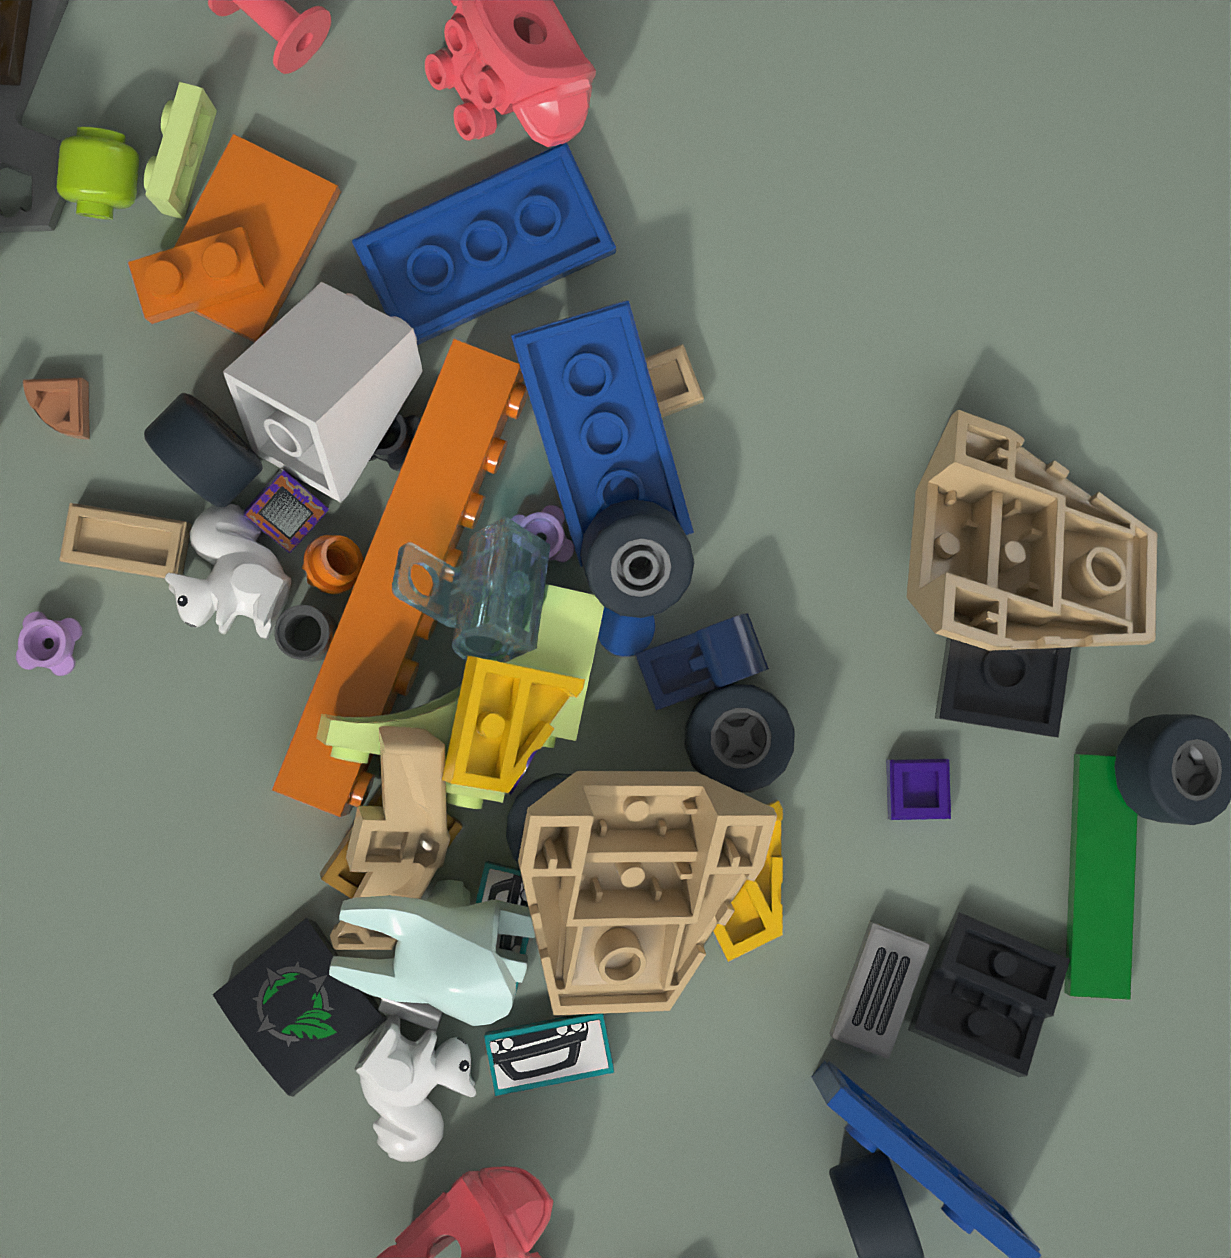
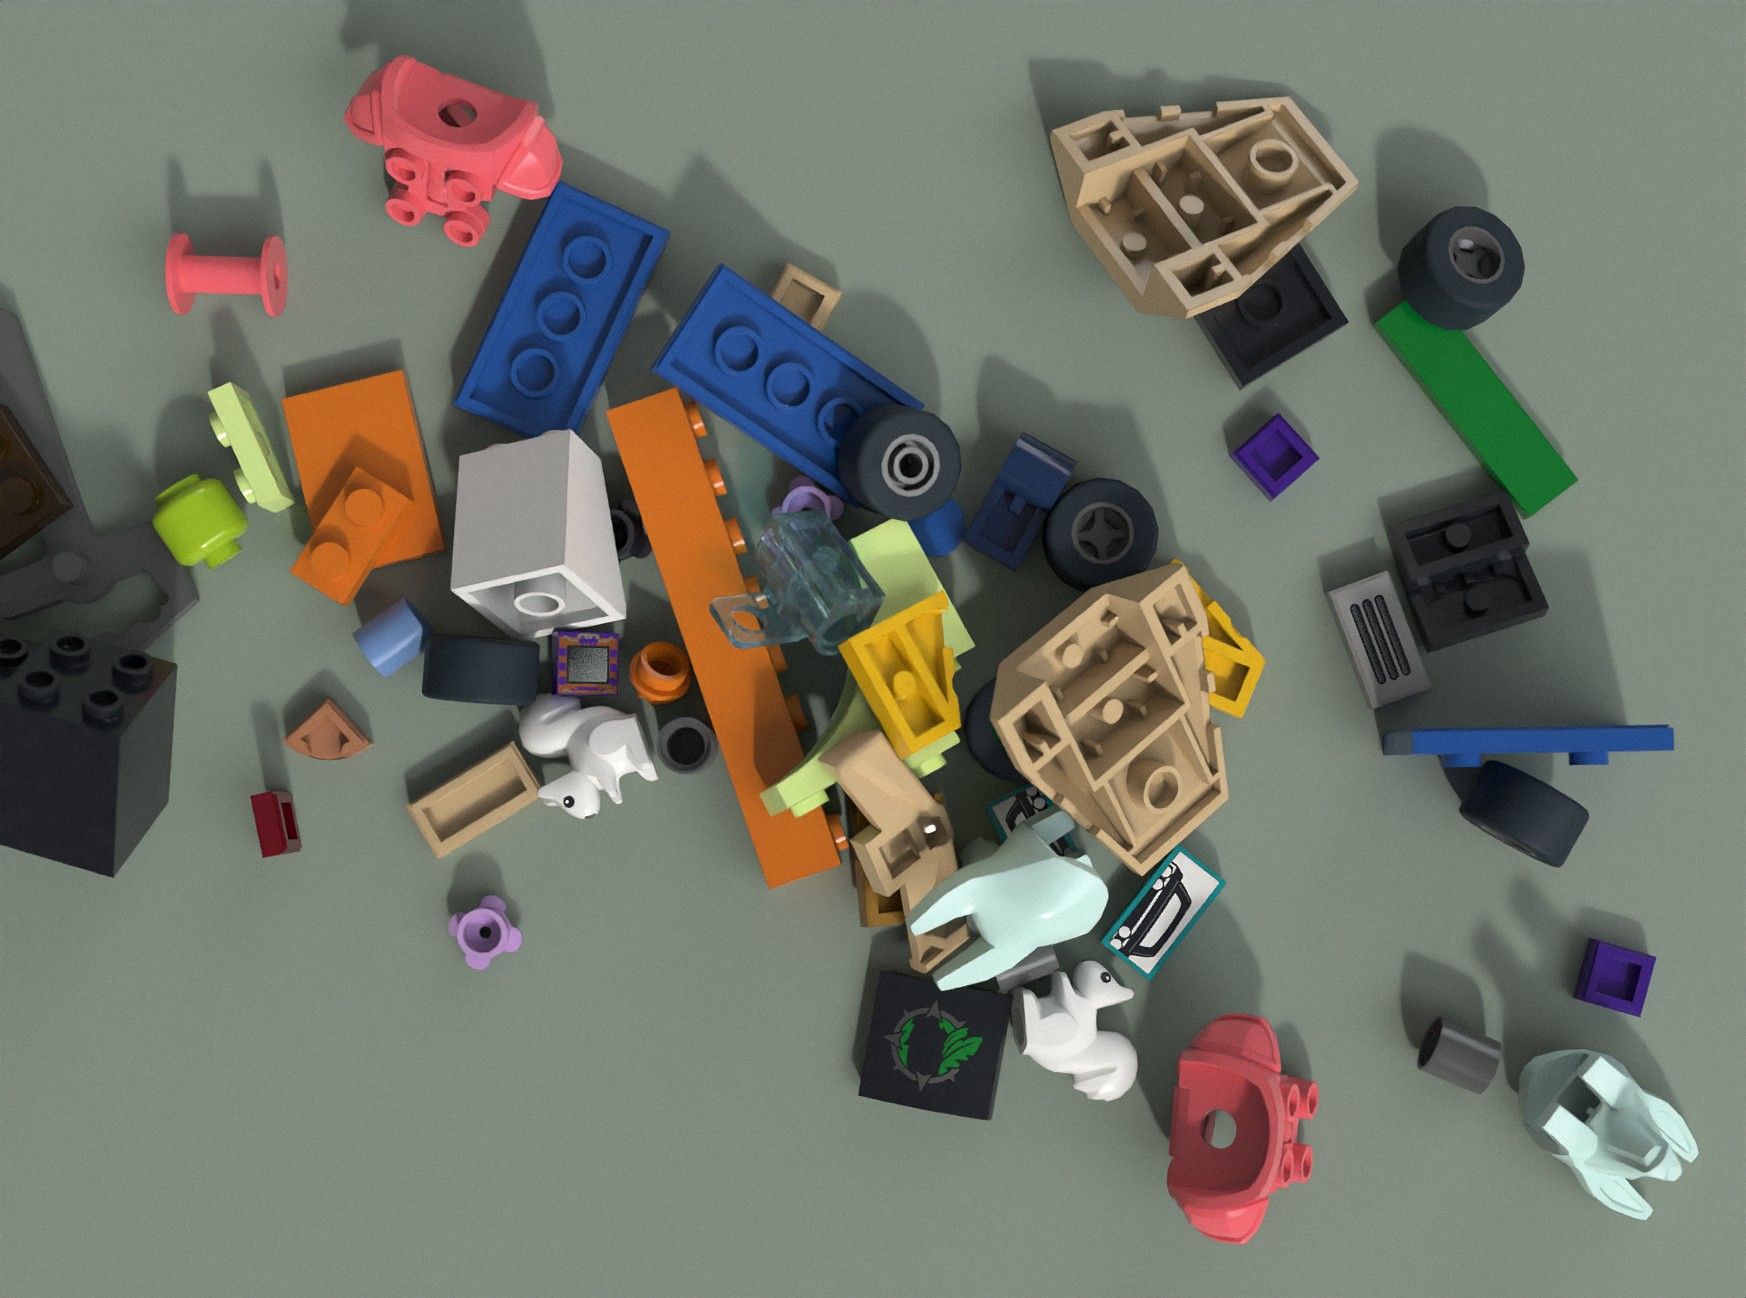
camera: 40 degrees left, 0 degrees up
(164, 373) = (394, 637): none -> medium blue beam

